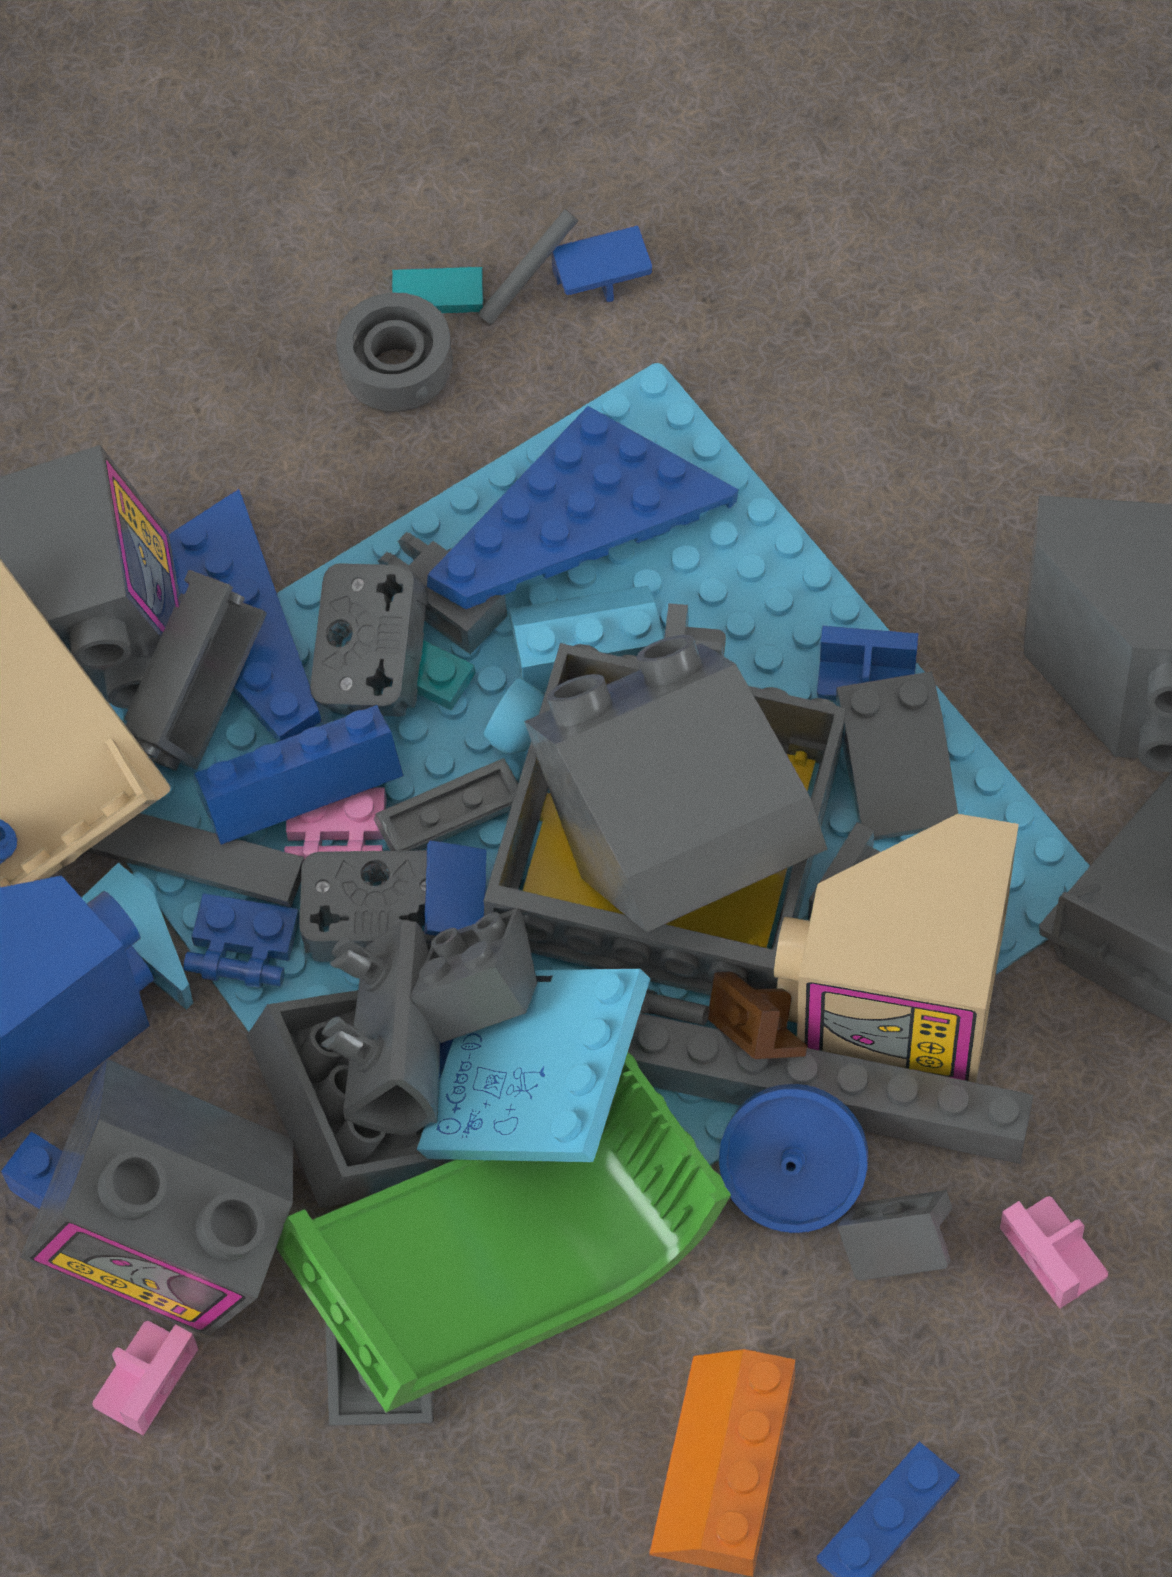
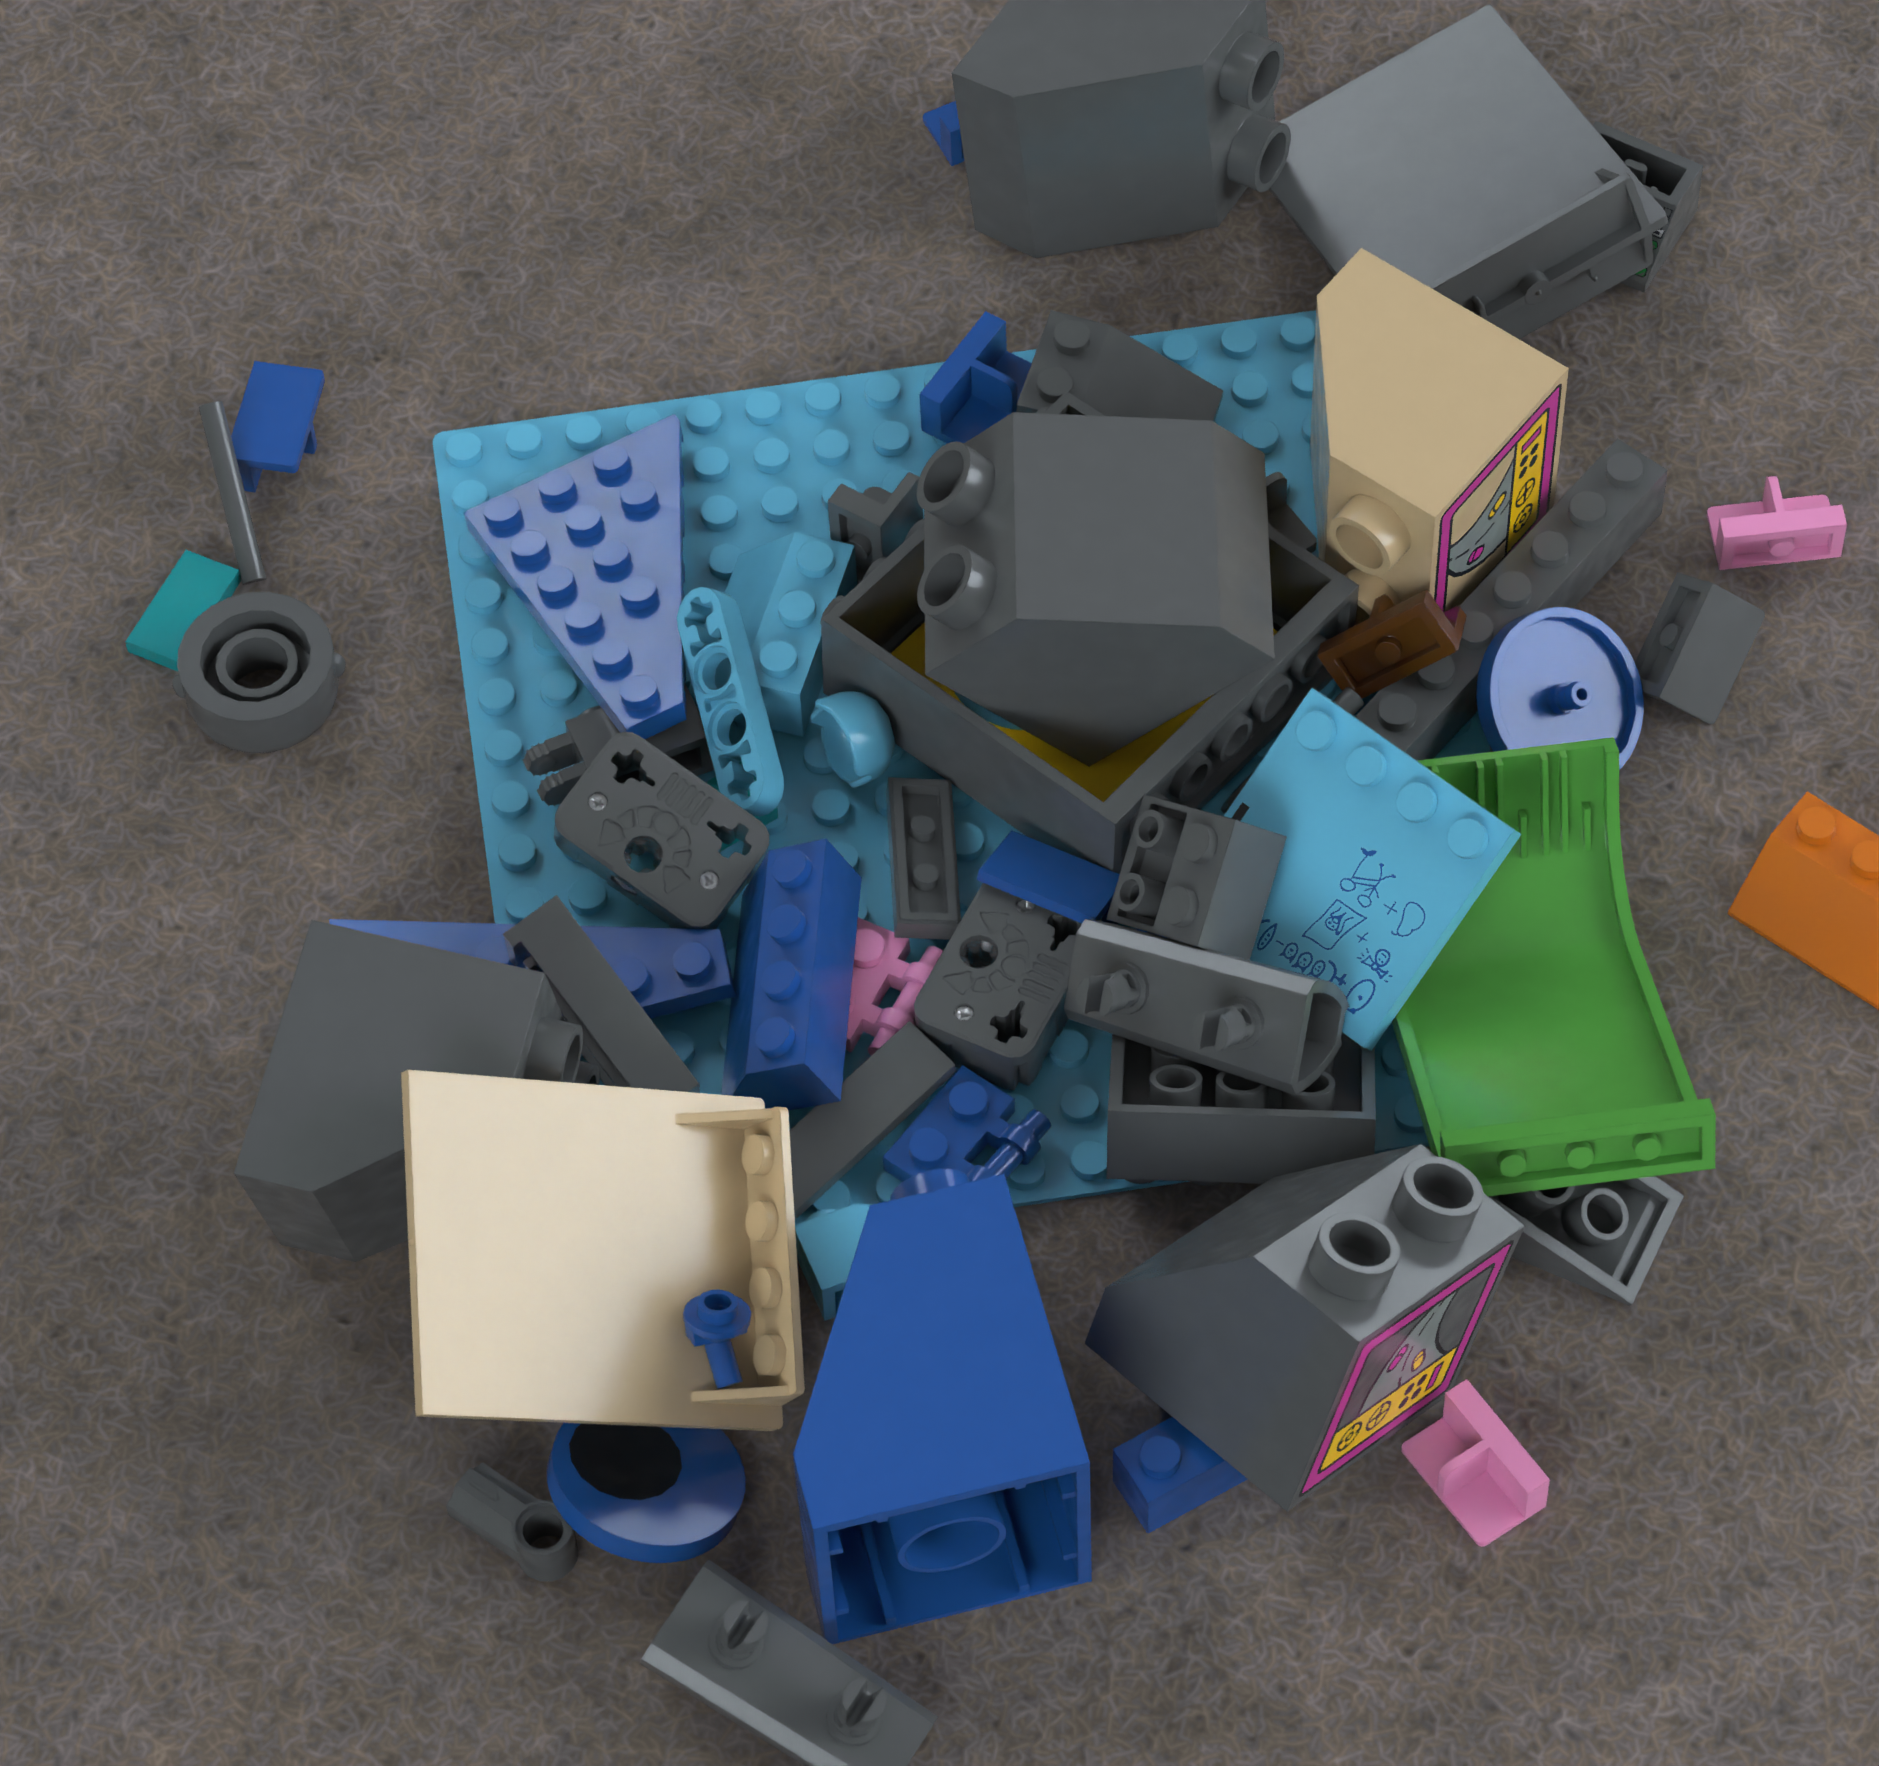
camera: 65 degrees left, 5 degrees down
(491, 627) = (737, 696): none -> medium azure beam

